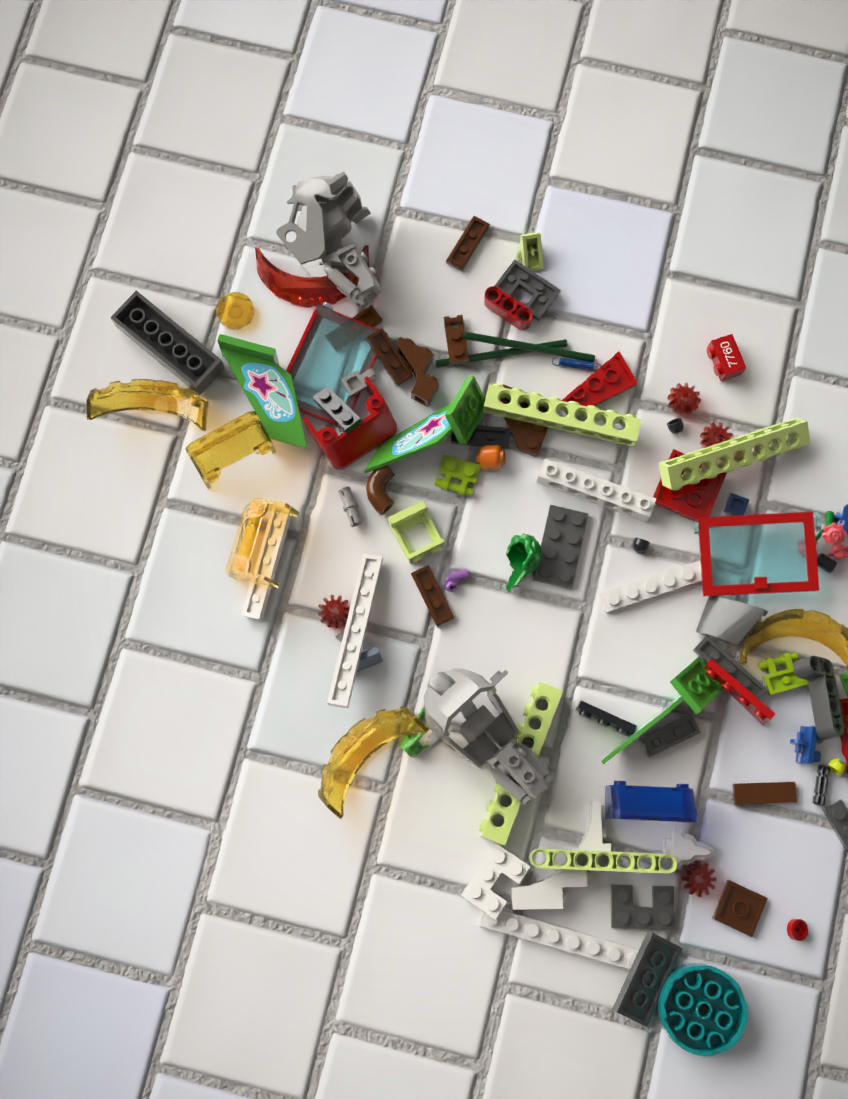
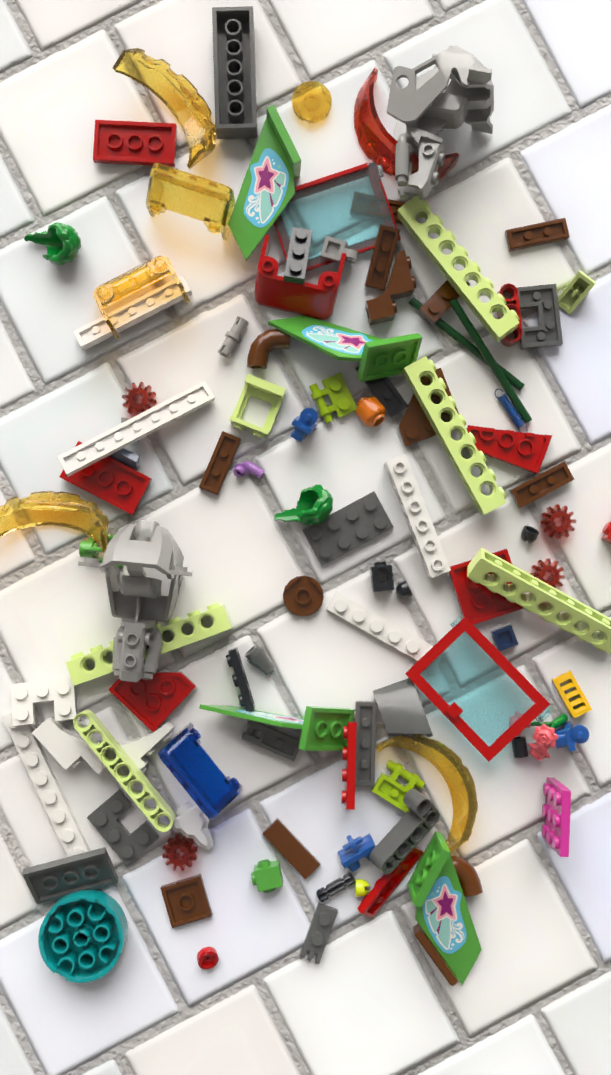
camera: 45 degrees right, 10 degrees up
(148, 453) = (134, 142): none -> red plate
(169, 567) = (61, 242): none -> green hair
(376, 686) = (112, 483): none -> red plate
(455, 319) = (420, 208): none -> yellowish green brick
(460, 509) = (304, 424): none -> blue hips
(565, 795) = (155, 698): none -> red plate
(582, 621) = (303, 596): none -> reddish brown tile
(600, 692) = (259, 659): none -> dark grey cone
(619, 561) = (388, 584): none -> black brick
(647, 388) = (541, 485): none -> reddish brown plate
(771, 827) = (267, 876): none -> bright green brick
(826, 490) = (577, 691): none -> yellow slope

